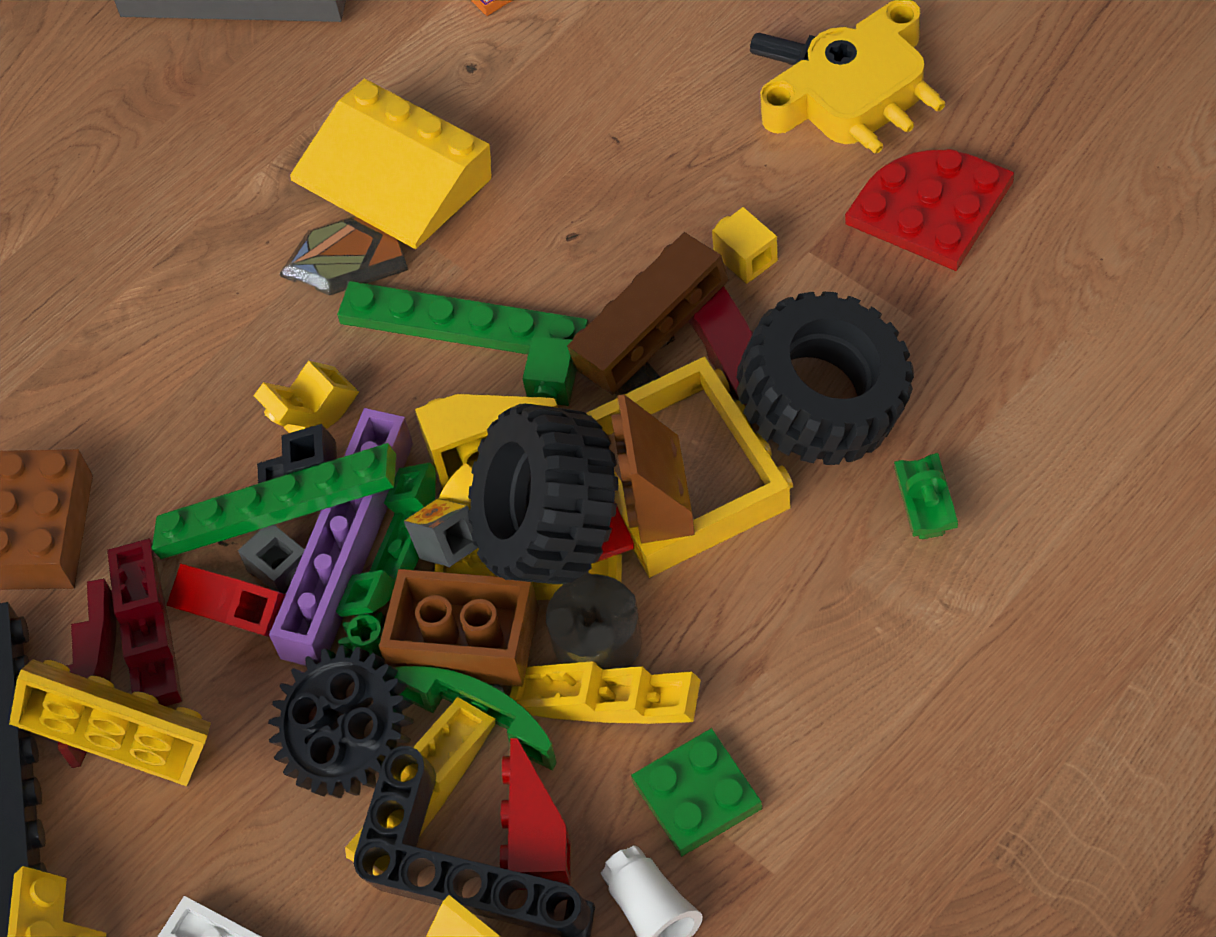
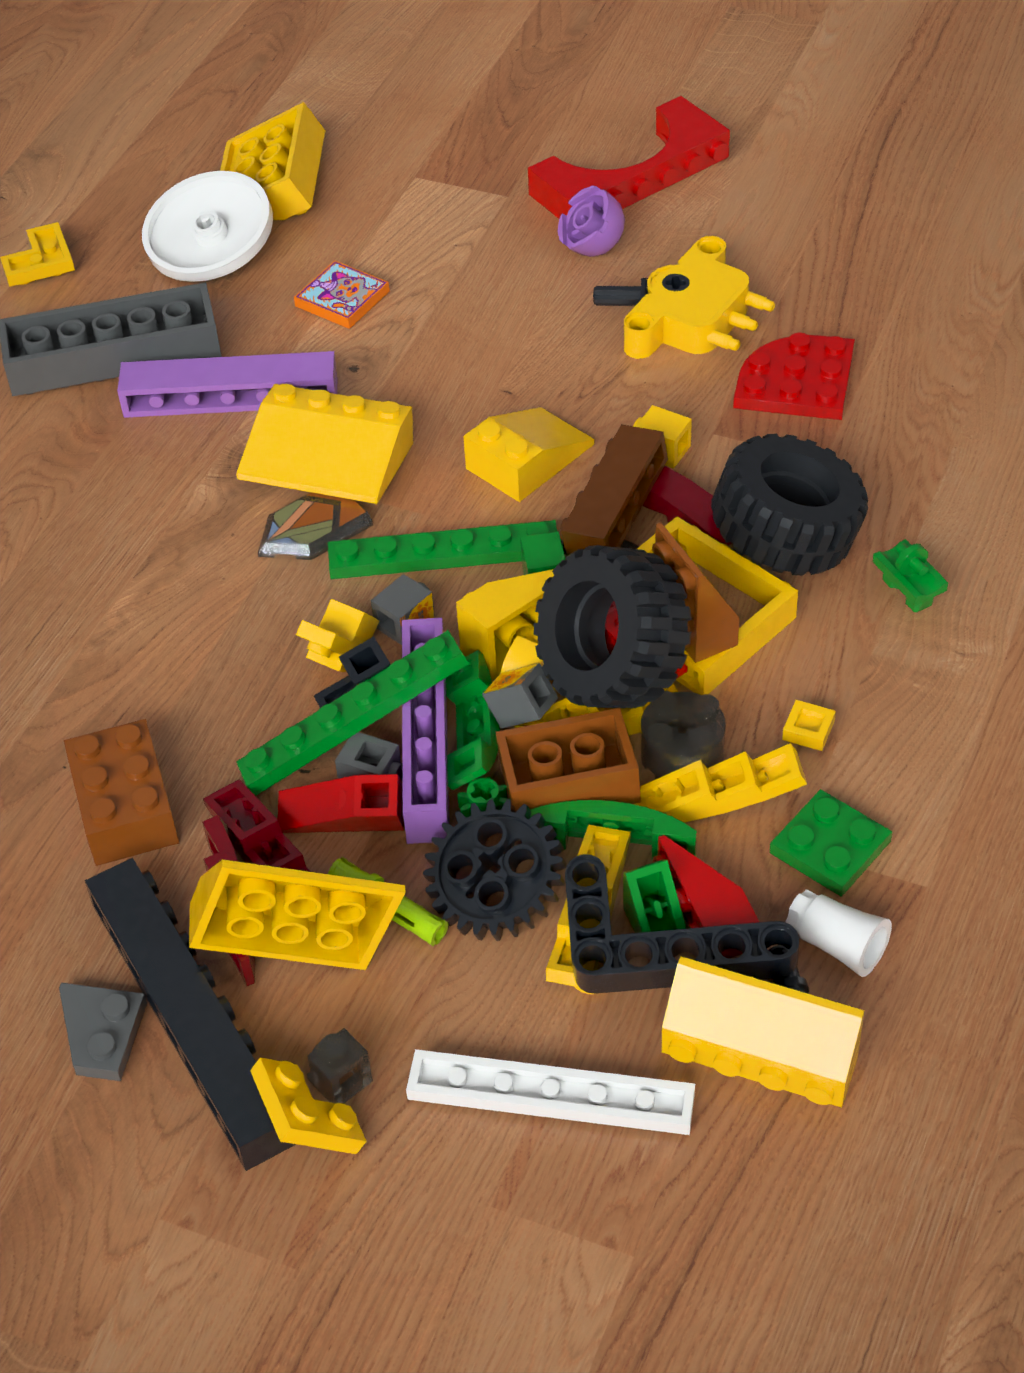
camera: 25 degrees left, 10 degrees down
(102, 883) = (332, 1060): none -> clear smoke brick
(222, 706) = (408, 914): none -> lime pin
(328, 58) = (218, 382): none -> medium lavender brick
(388, 383) = (401, 601): none -> dark grey brick
(477, 815) = (651, 898): none -> green slope
(596, 219) = (522, 450): none -> yellow slope
(735, 648) = (808, 725): none -> yellow plate

